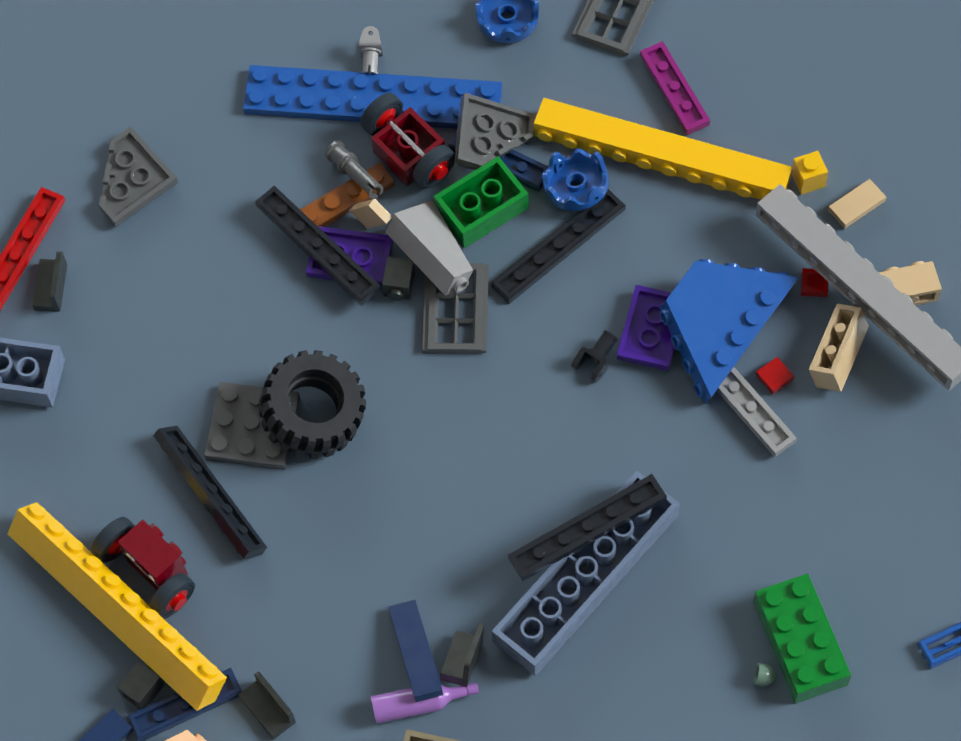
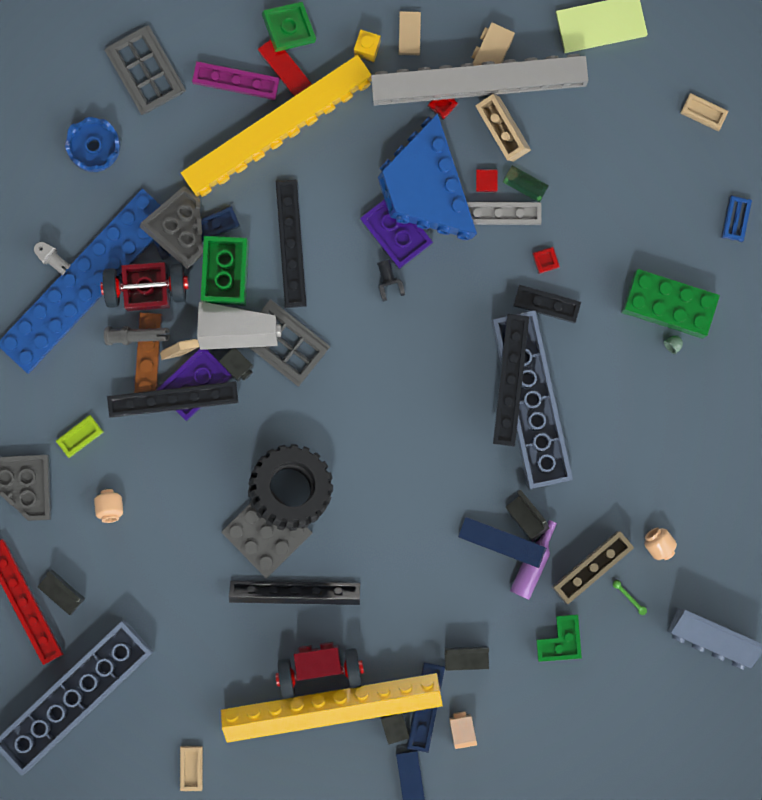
camera: 60 degrees left, 20 degrees up
(167, 264) = (108, 506): none -> light nougat head
(217, 196) = (79, 436): none -> lime tile
(577, 166) = (246, 188): blue plate -> none
(699, 520) = (547, 304): none -> black plate
(726, 116) = (285, 68): none -> red tile
(743, 488) = (545, 260): none -> red tile
(766, 94) = (288, 26): none -> green plate
(803, 411) = (525, 183): none -> clear green tile

